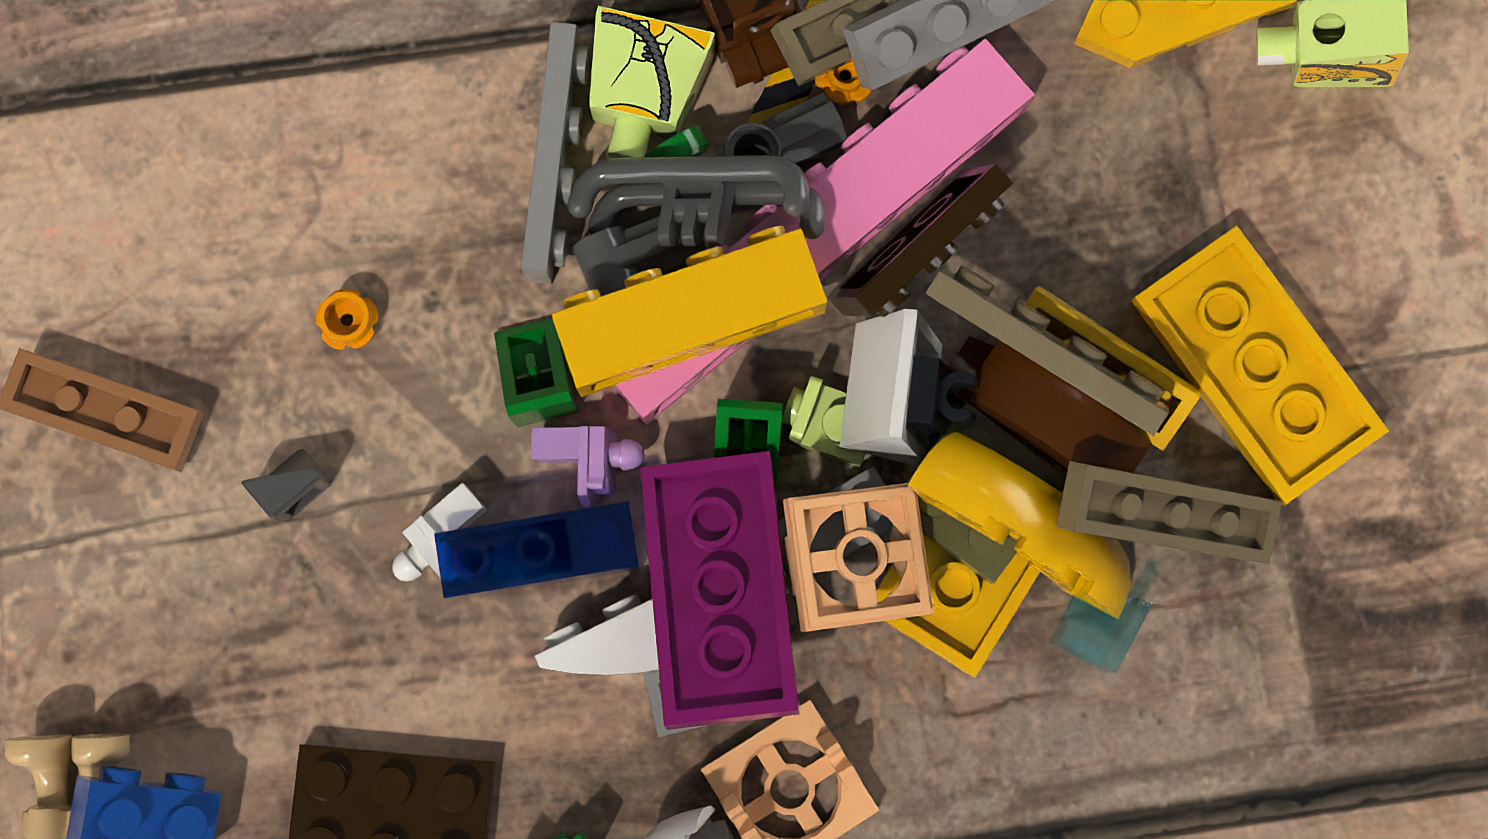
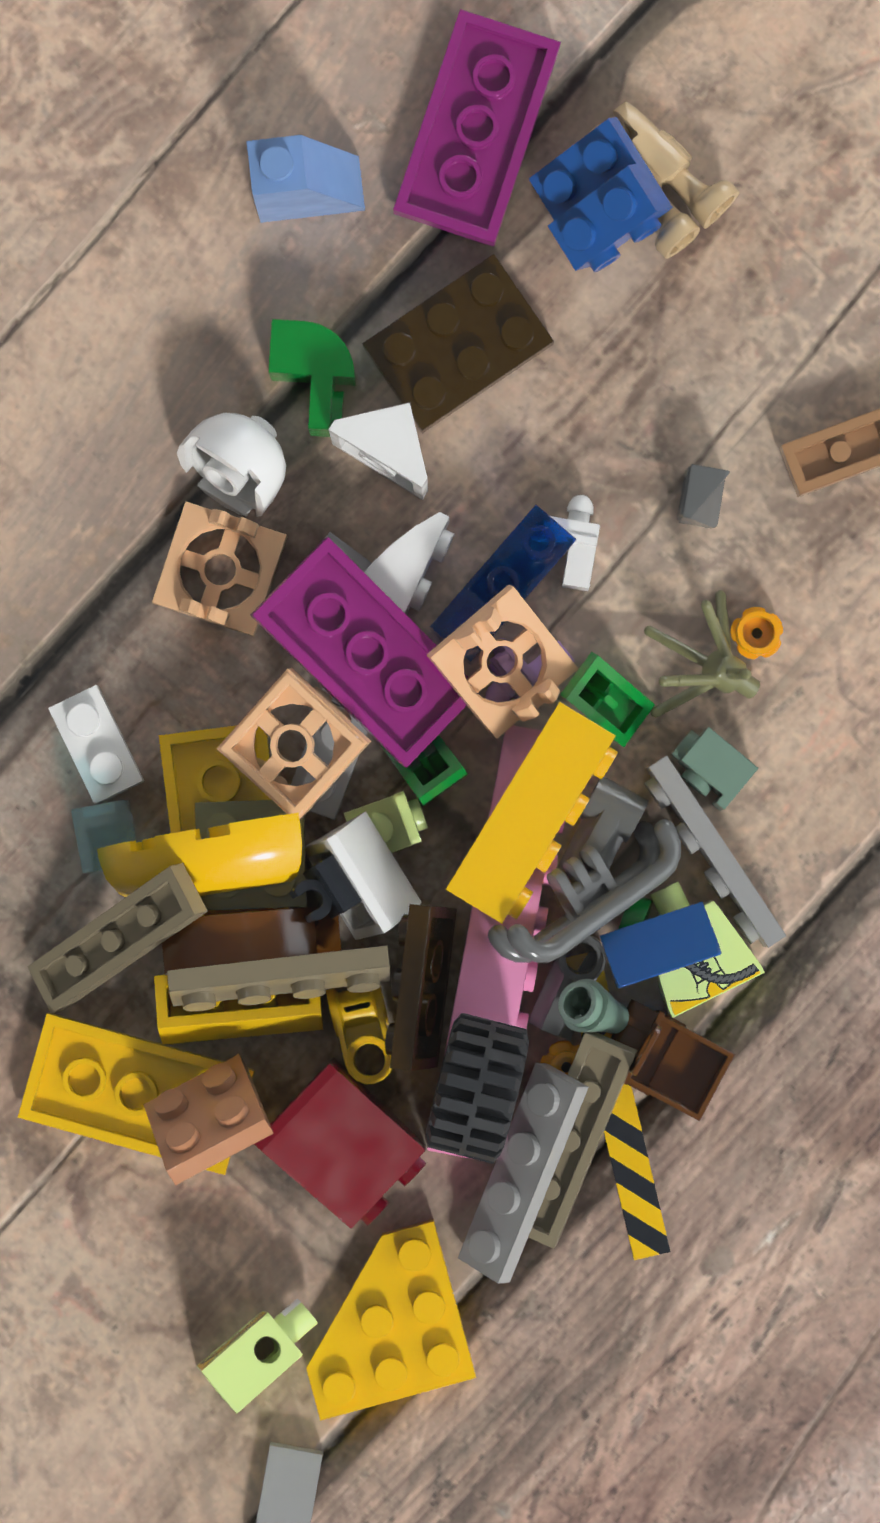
camera: 145 degrees right, 5 degrees up
(407, 313) = (719, 669): none -> olive plant
(487, 229) = (713, 766): none -> sand green brick
(534, 771) = (386, 443): none -> white slope
(602, 518) = (555, 668): none -> light nougat piece
(672, 99) = (660, 945): none -> blue slope
(782, 98) = (591, 1008): none -> sand green cone
(948, 94) = (477, 1088): none -> black tyre
(1008, 258) = (360, 1028): none -> yellow piece
(1039, 719) = (96, 744): none -> white plate
(1108, 167) = (343, 1145): none -> dark red slope
(1219, 276) = (207, 1119): none -> nougat plate

